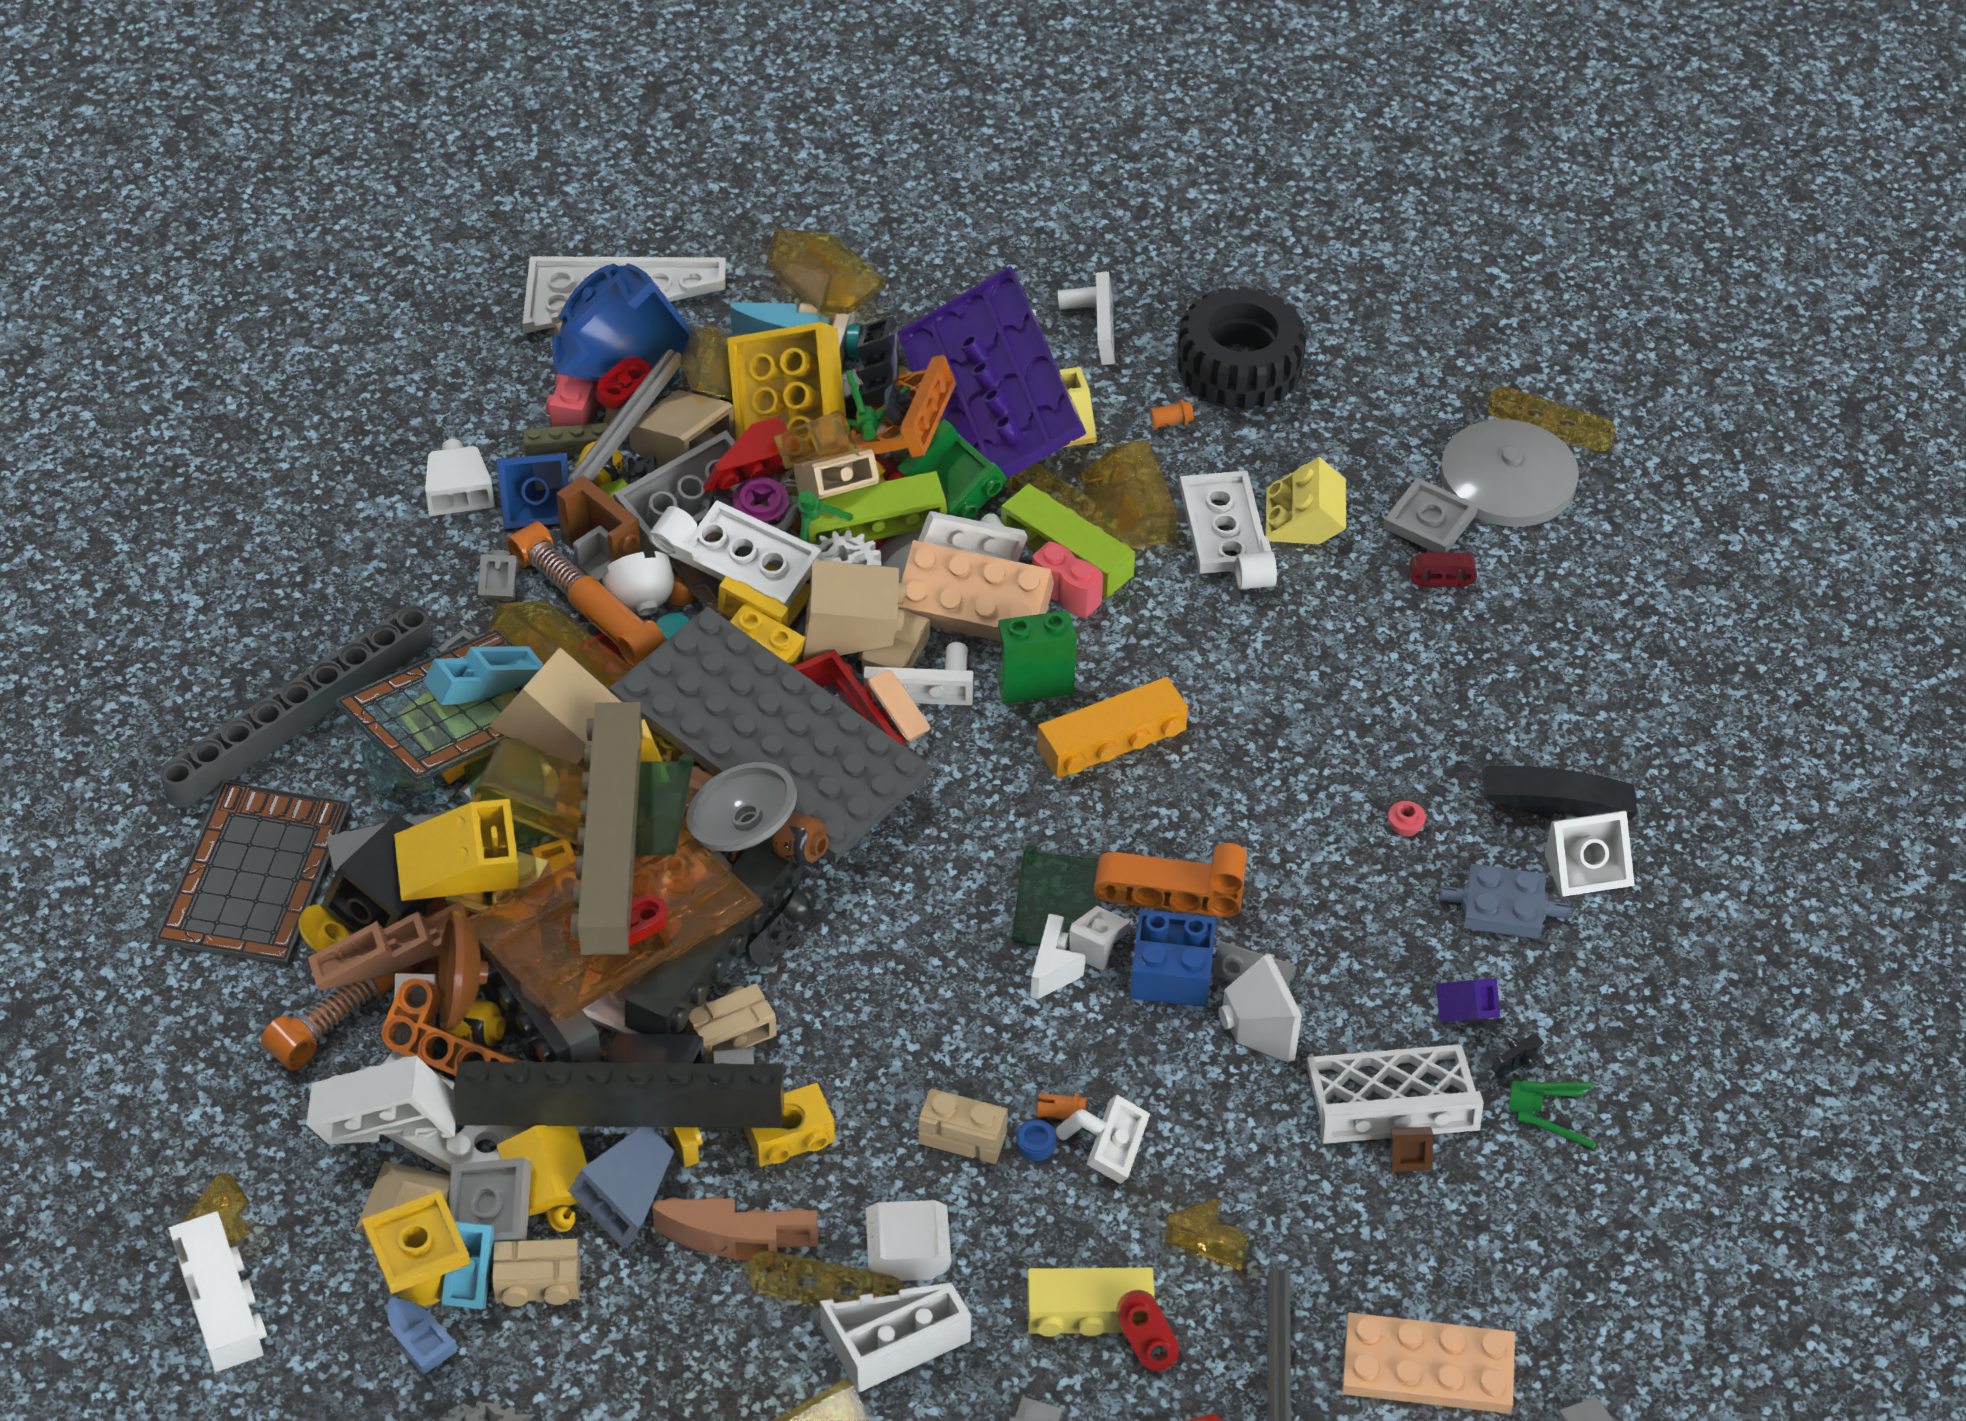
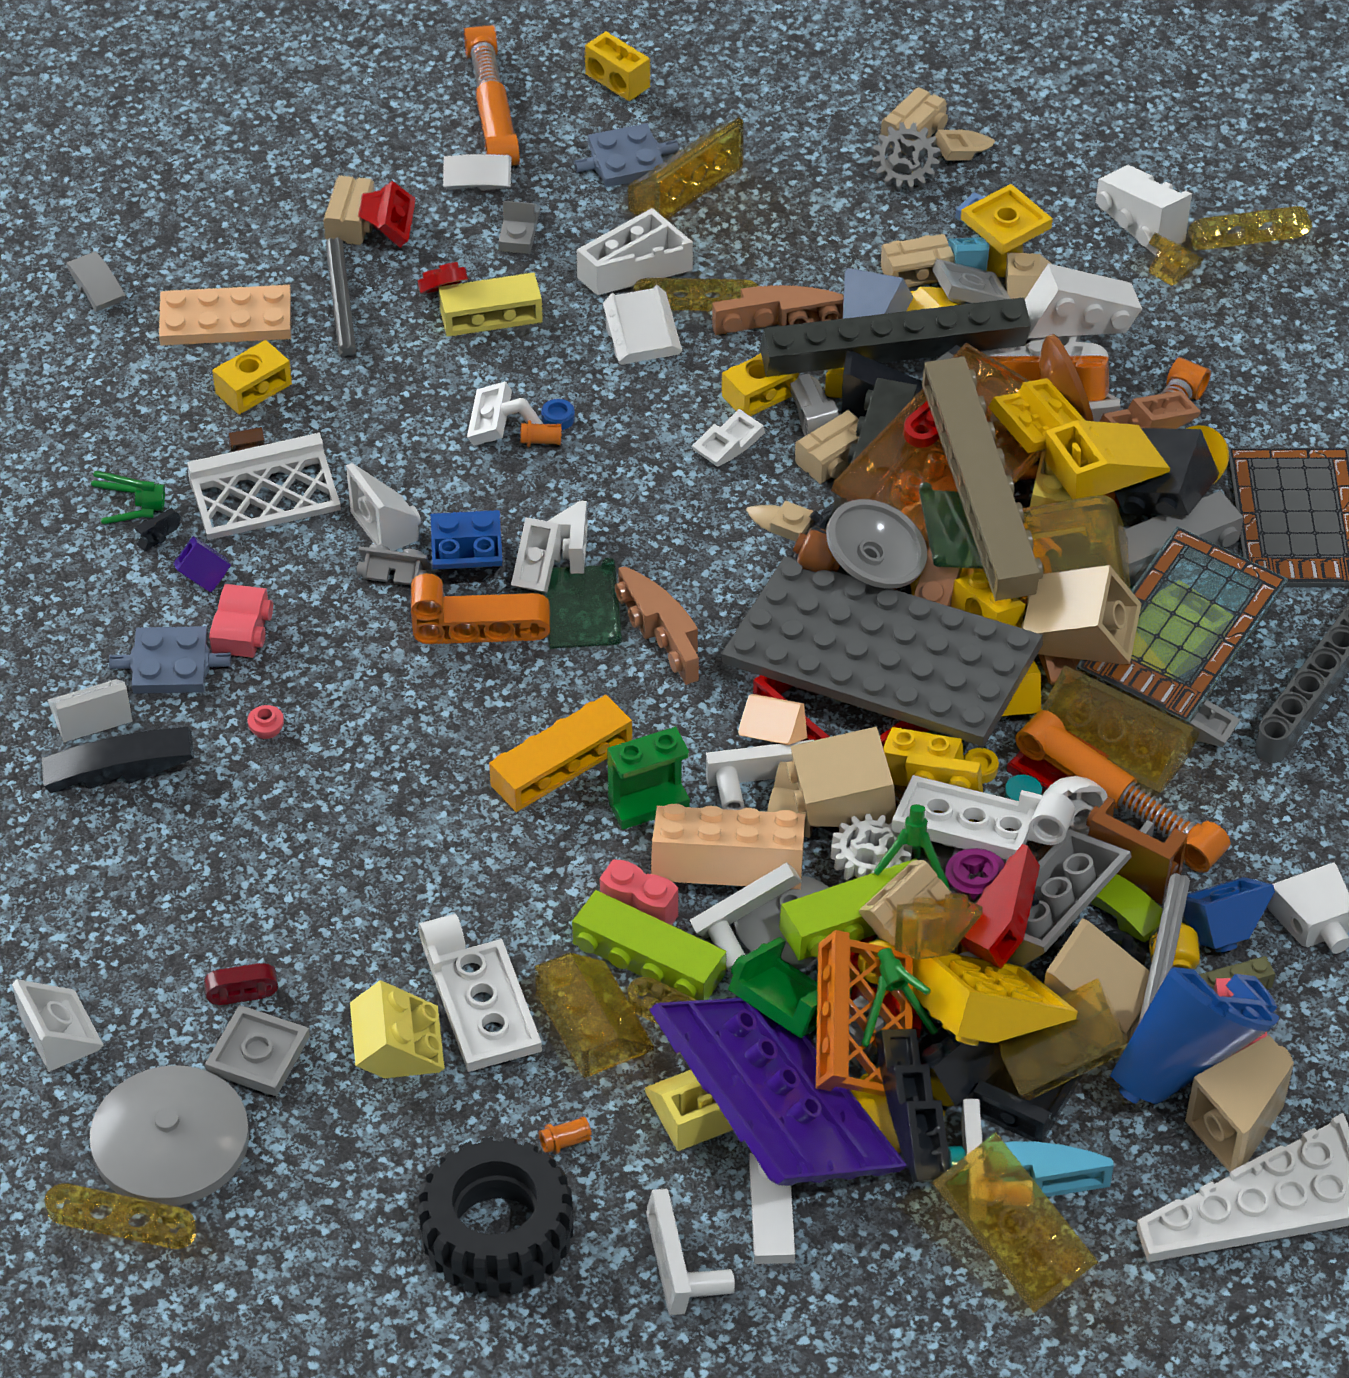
camera: 170 degrees right, 0 degrees up
(96, 1251) = (1205, 231): none -> clear yellow beam
(481, 673) = (1167, 642): medium azure slope -> none
(498, 575) = (1222, 808): light grey bracket -> none
(510, 910) = (1033, 411): none -> yellow slope
(812, 960) = (782, 520): none -> tan plate
(849, 1067) = (730, 439): none -> white slope
(896, 404) = (863, 981): black piece -> none
(963, 1126) = (618, 398): tan brick -> none
(978, 851) = (663, 618): none -> nougat slope
(1198, 1232) = (411, 359): clear yellow slope -> none
(1409, 1224) = (252, 377): none -> yellow brick
(1428, 923) = (240, 620): none -> coral brick
(1613, 561) = (56, 1023): none -> white slope

